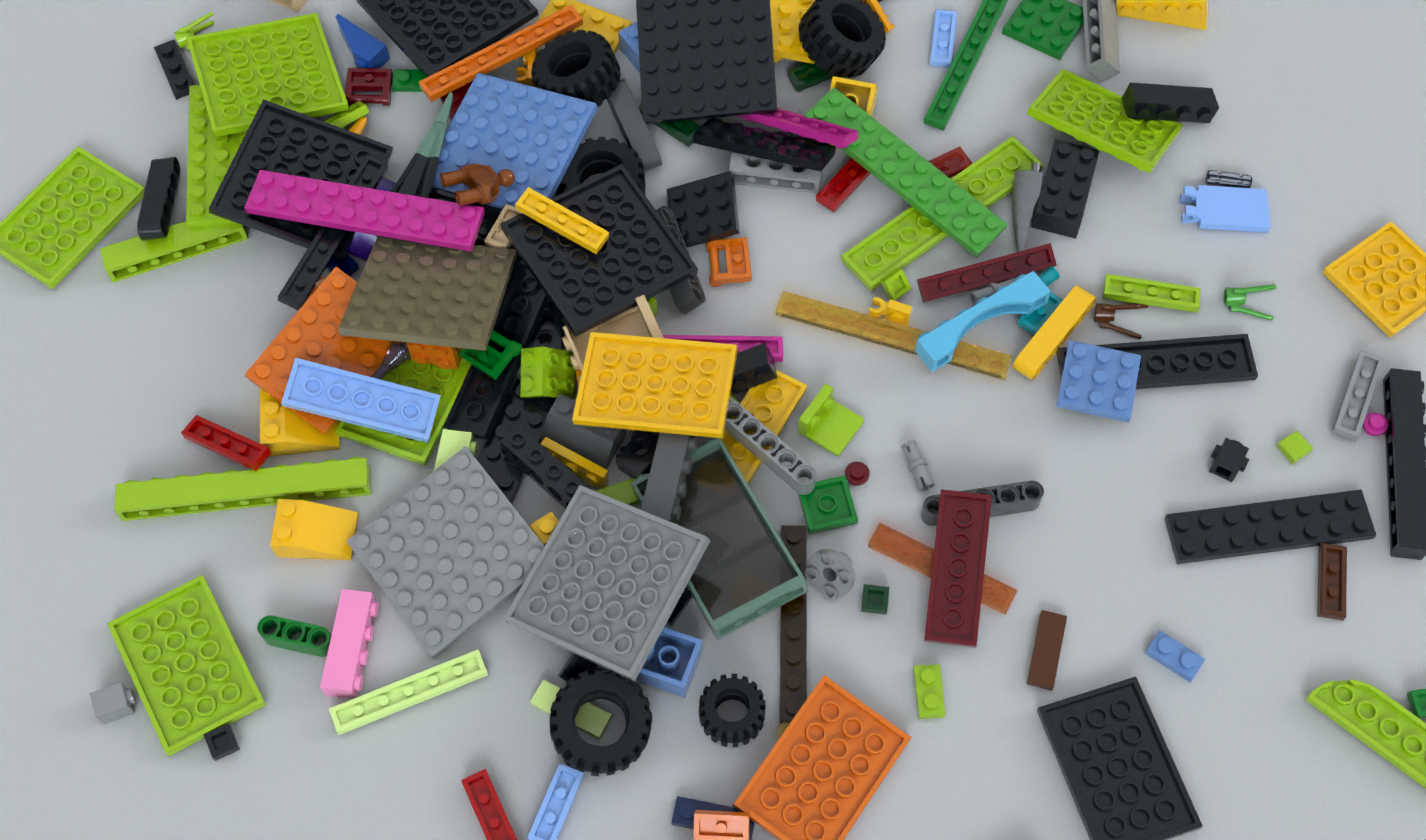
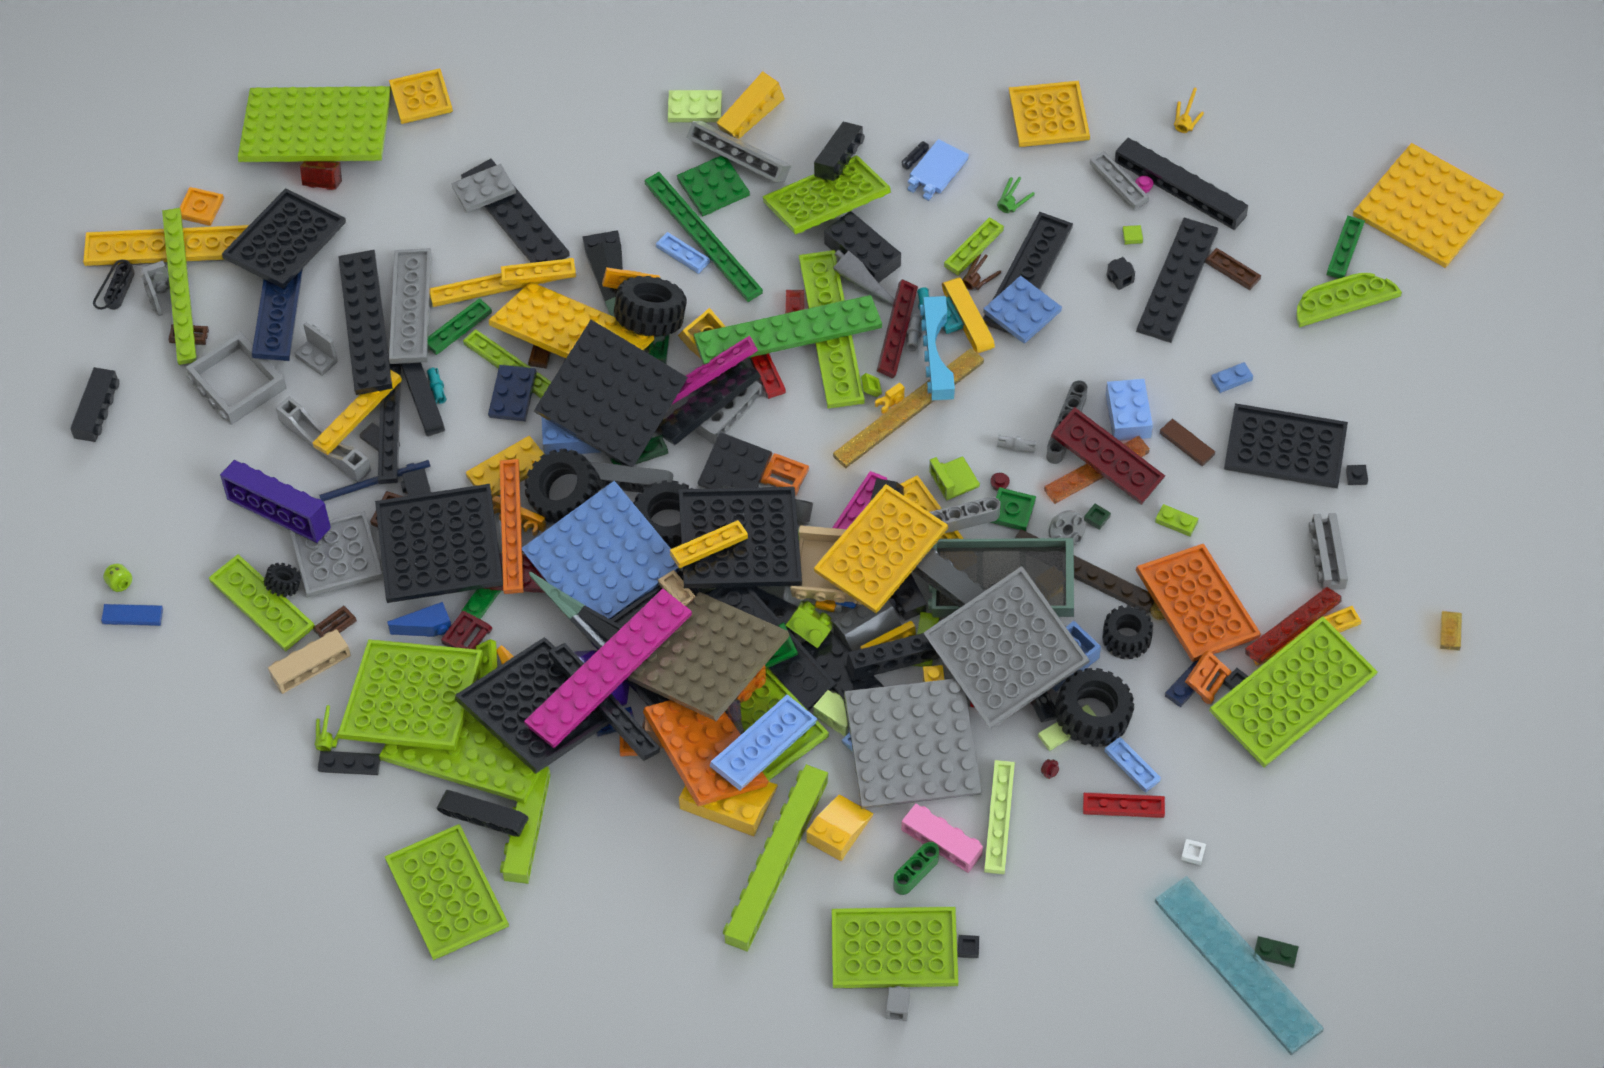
camera: 60 degrees left, 5 degrees down
(226, 443) = (733, 851): red plate -> none
(481, 181) = (633, 582): dark orange connector -> none
(500, 715) = (1050, 768): none -> dark red plate
(1043, 560) = (1129, 409): none -> light blue brick

